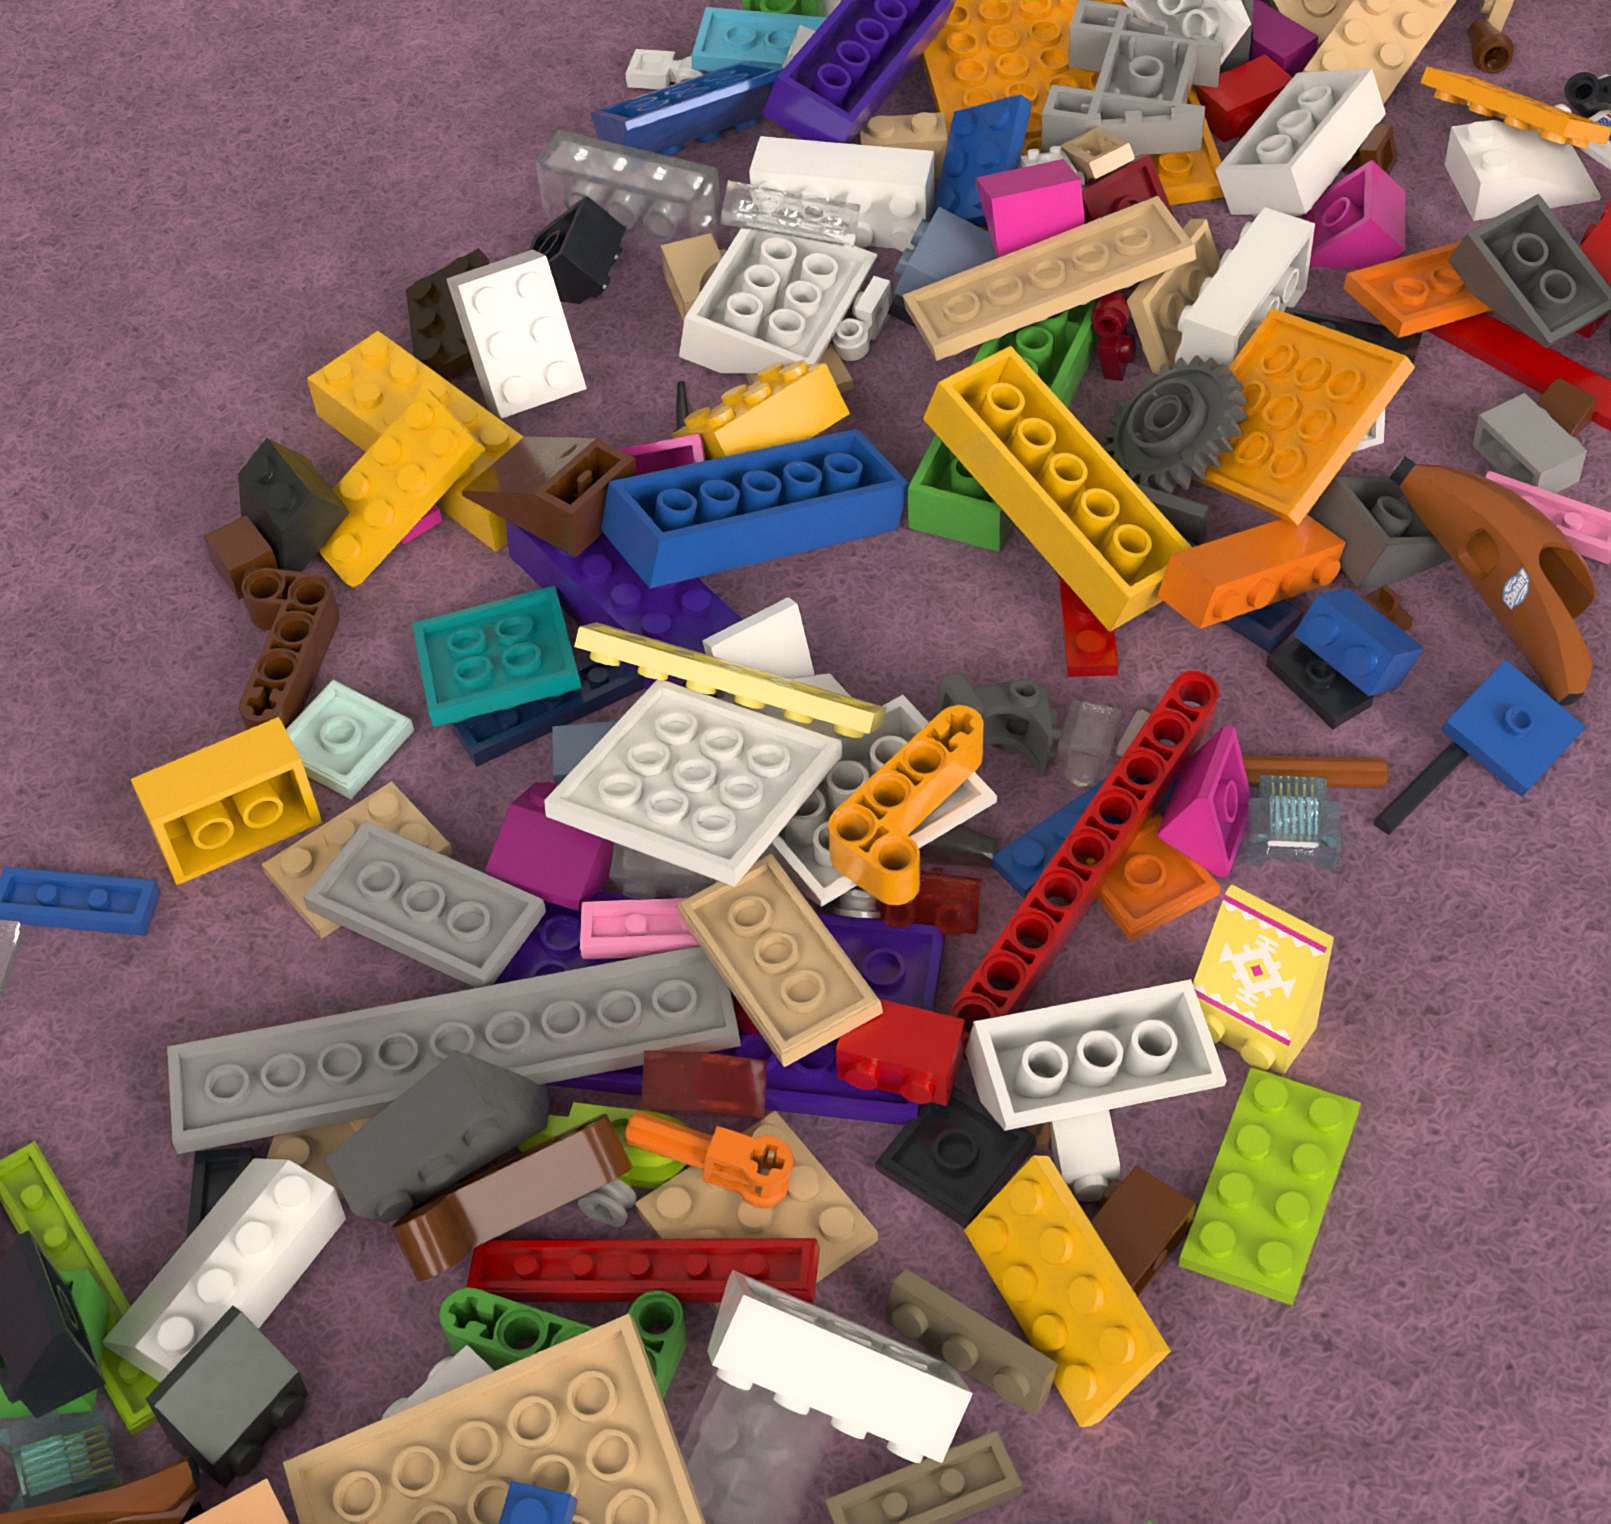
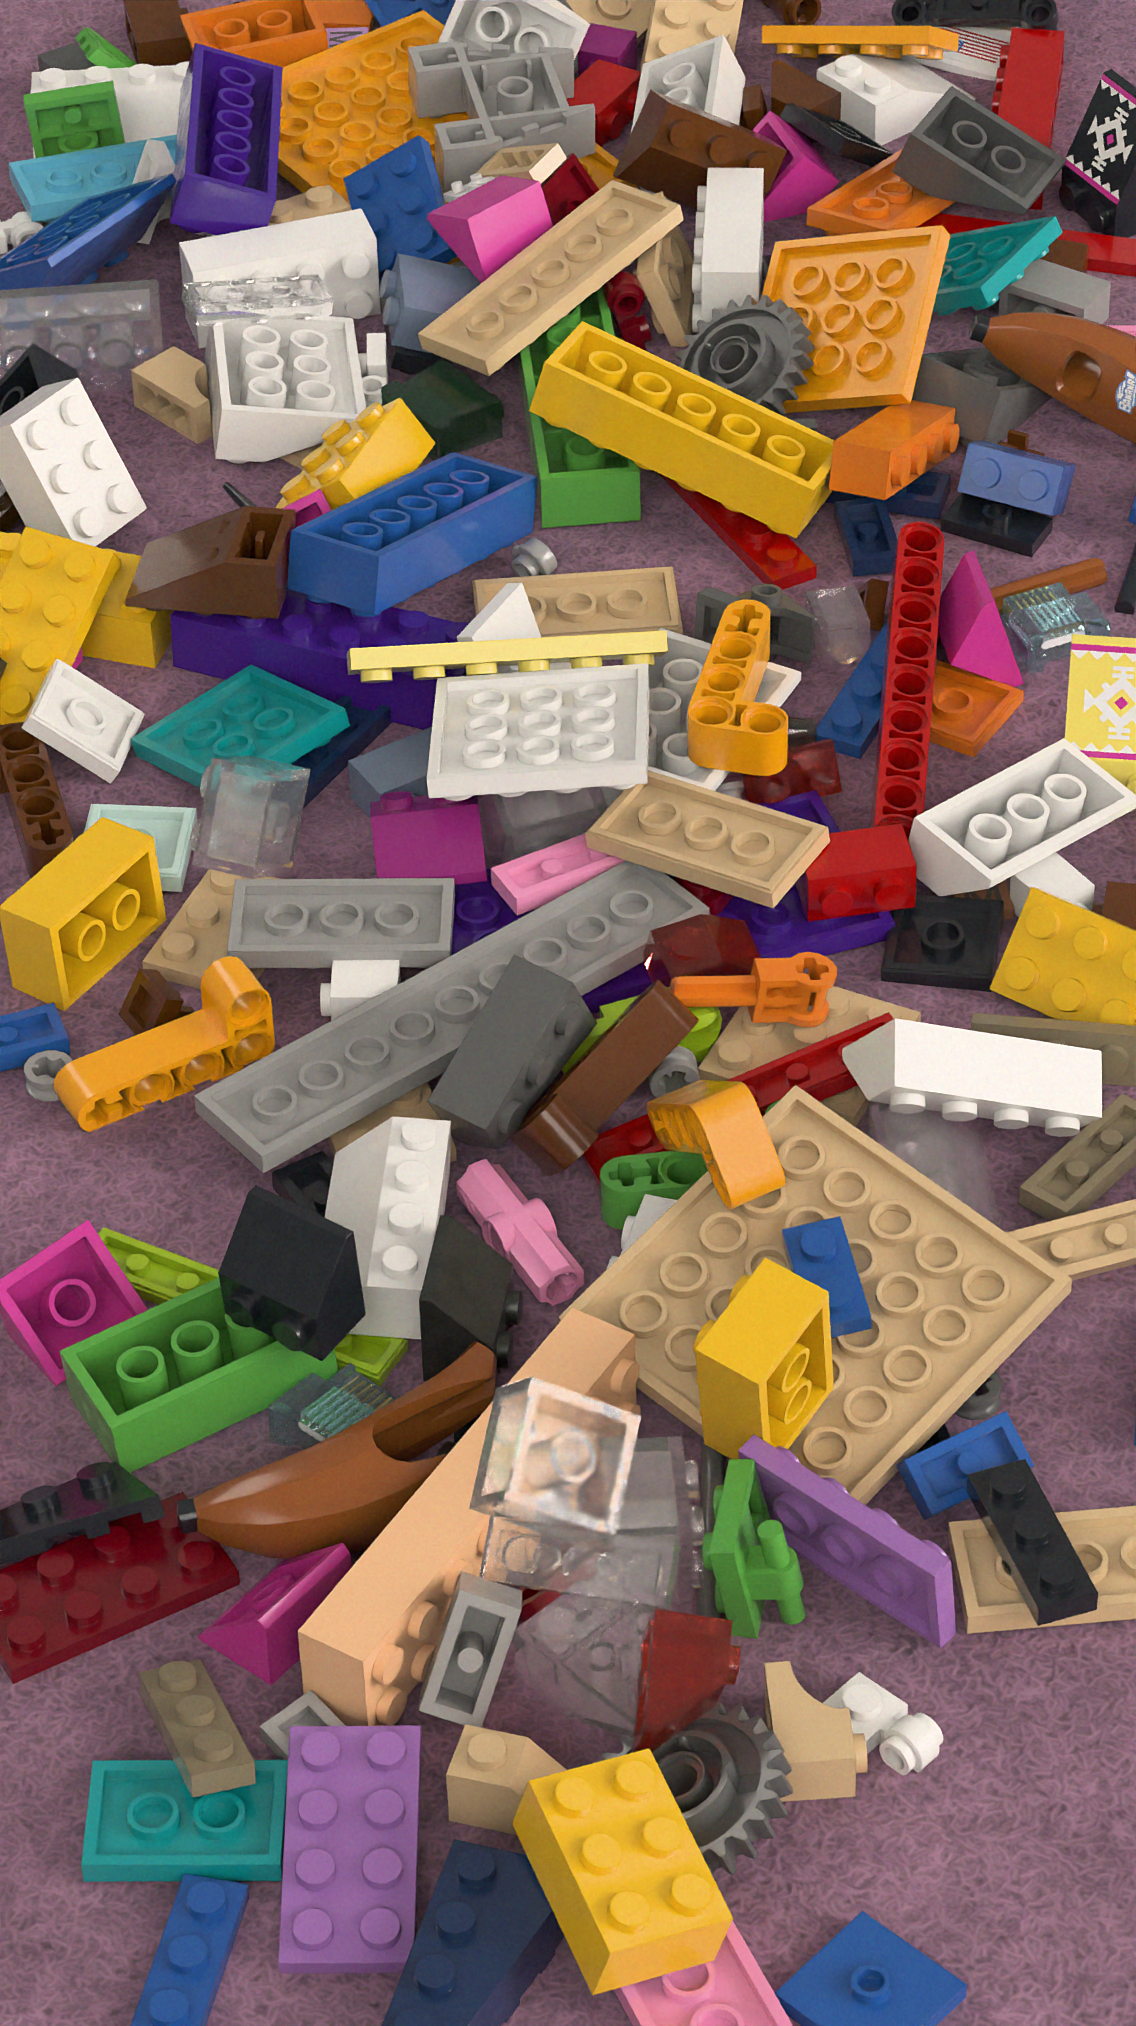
camera: 30 degrees left, 10 degrees down
(105, 939) = (36, 1069): none -> light grey bush
(205, 983) = (174, 1057): none -> light orange beam
(231, 921) = (151, 1002): none -> reddish brown tile
(352, 1324) = (520, 1232): none -> bright pink piece
(378, 592) = (83, 720): none -> white tile
(400, 978) = (356, 983): none -> white brick
(417, 759) = (249, 816): none -> clear brick
(520, 1329) = (727, 1130): none -> light orange beam
(871, 564) = (533, 559): none -> light grey plate
(886, 628) = (595, 601): none -> tan tile
(894, 375) = (449, 408): none -> clear green hips
(1183, 650) = (866, 535): none -> dark blue plate
(1258, 171) = (679, 143): none -> reddish brown slope
(1424, 156) = (796, 87): none -> reddish brown slope
(1431, 200) = (835, 135): none -> black tile
(1467, 389) = (988, 260): none -> teal plate

